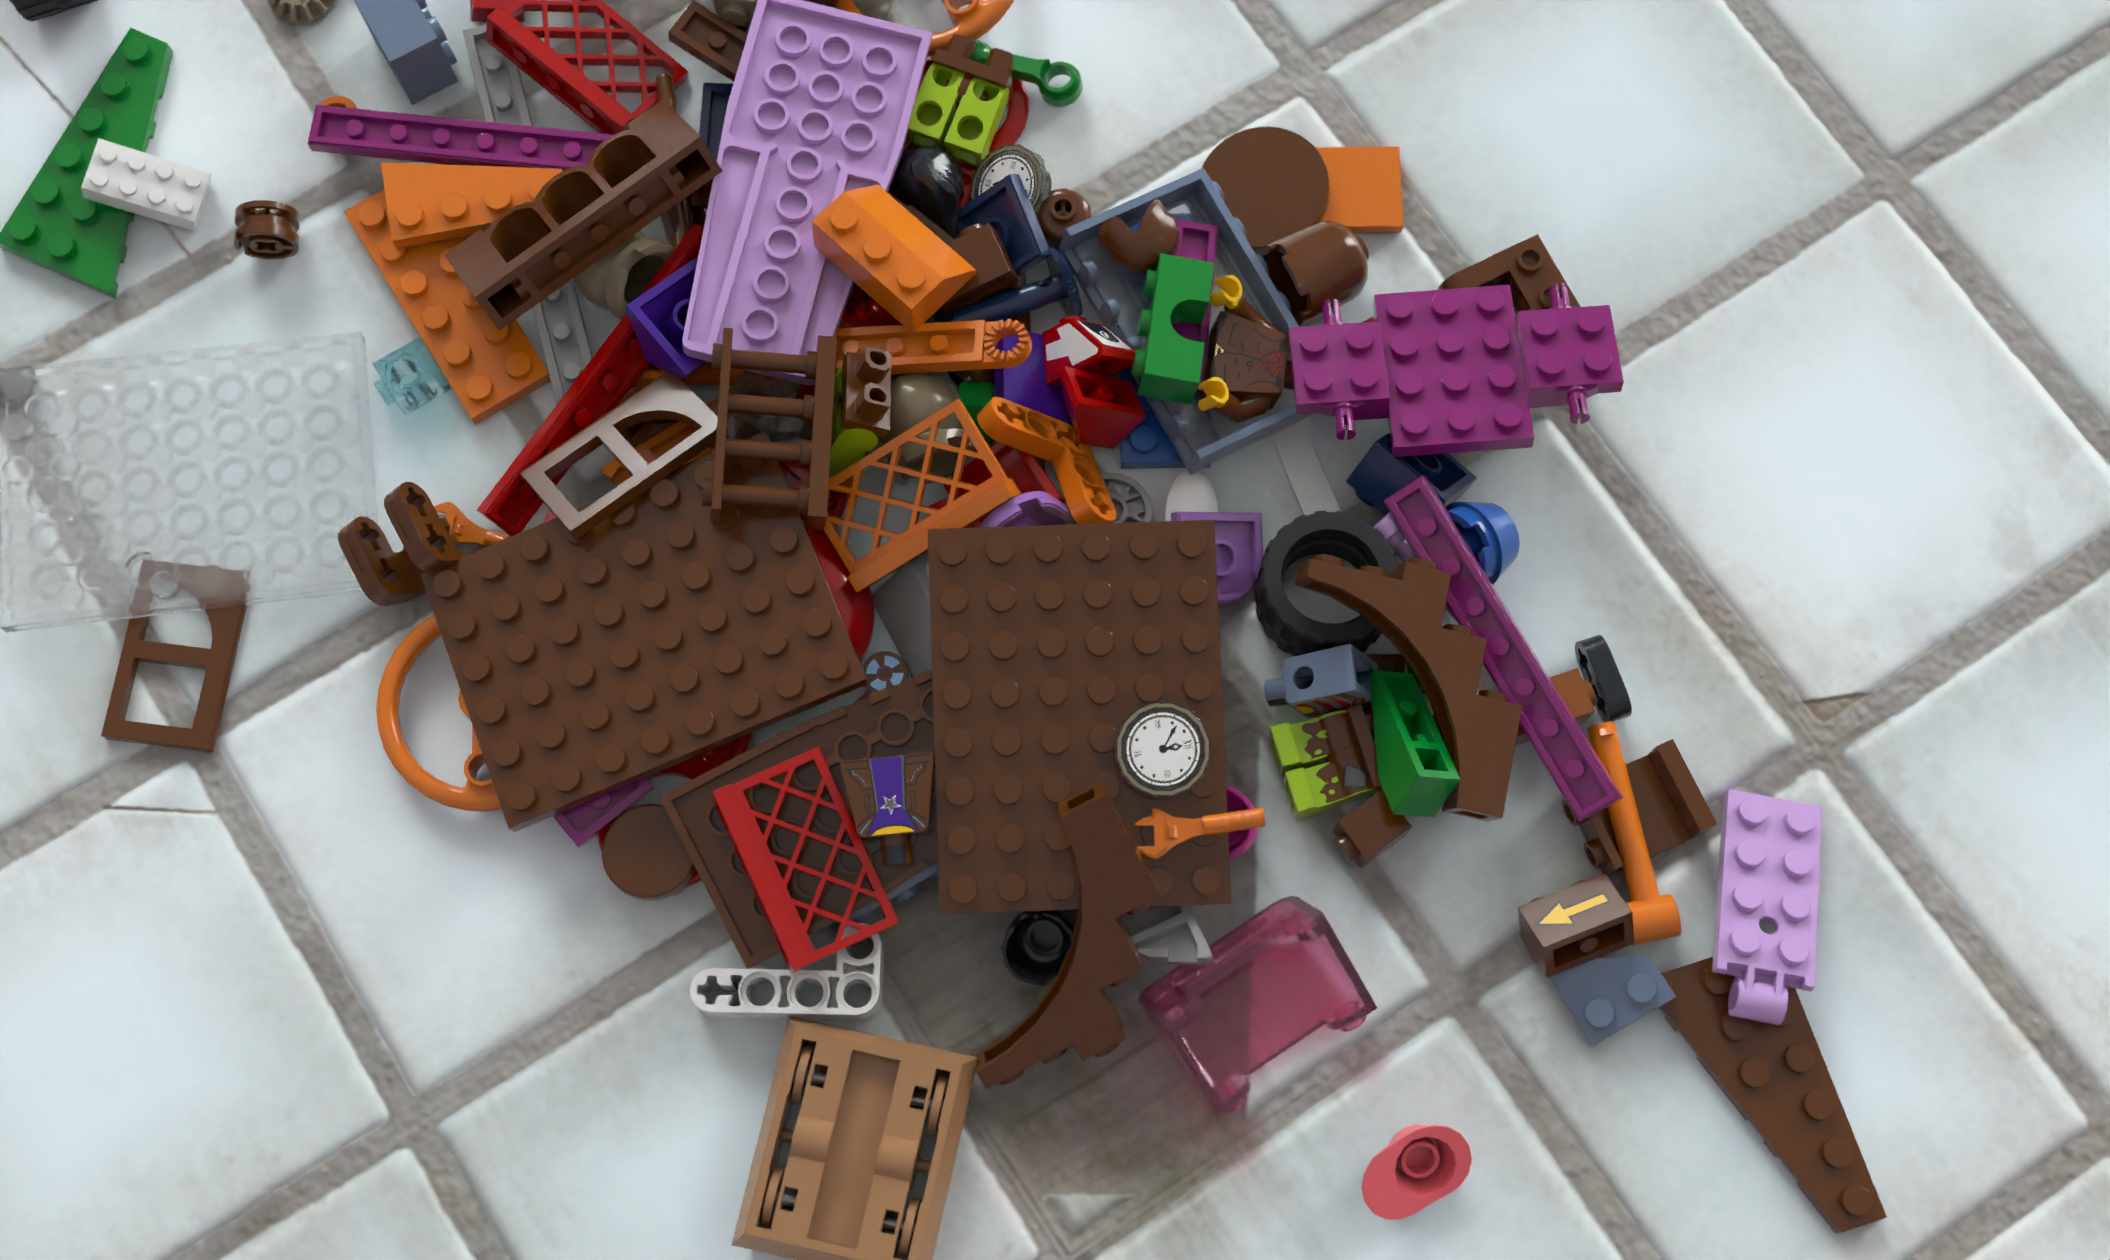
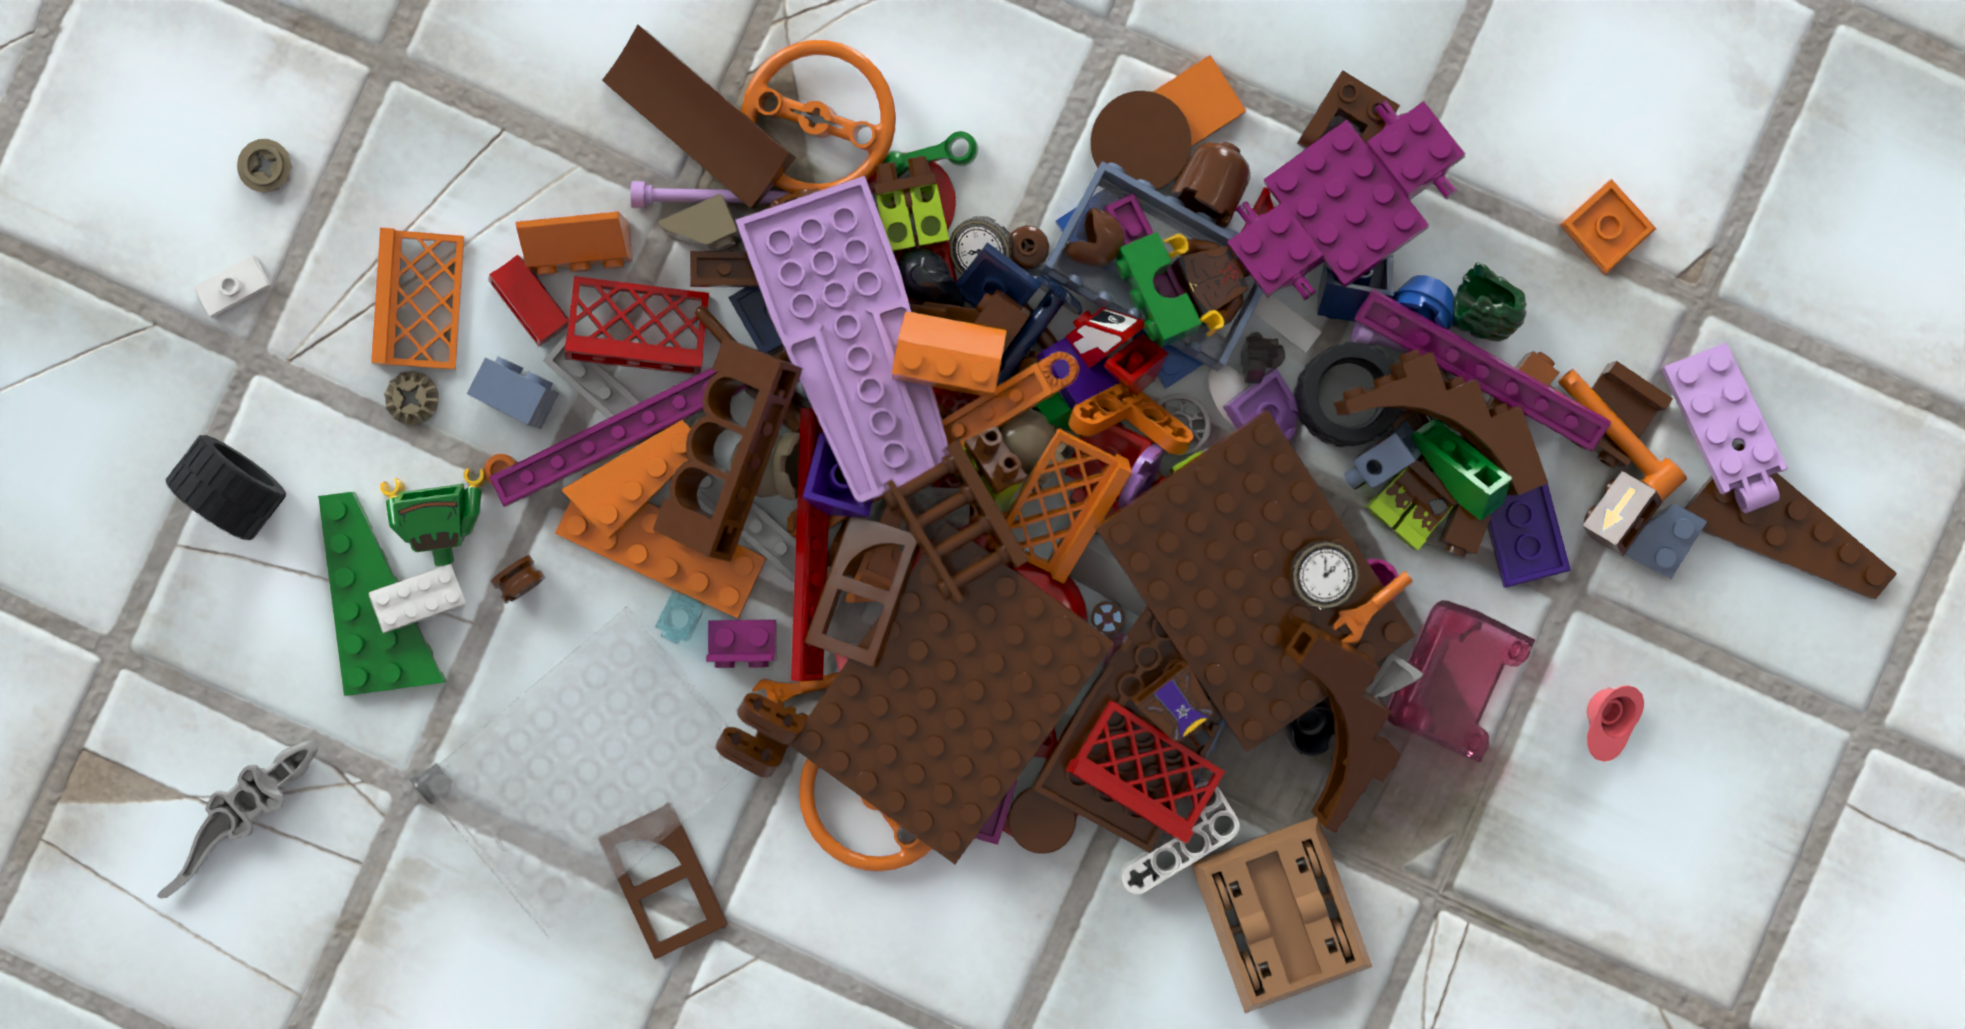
camera: 30 degrees left, 15 degrees up
(233, 115) = (435, 516): none -> green torso
(458, 447) = (742, 641): none -> magenta bracket
(1253, 488) = (1258, 355): none -> clear smoke piece
(1444, 883) = (1527, 538): none -> dark purple tile
(1554, 589) = (1488, 305): none -> dark green hair
(1602, 673) = (1549, 343): black beam -> none
(1751, 594) = (1607, 226): none -> orange tile

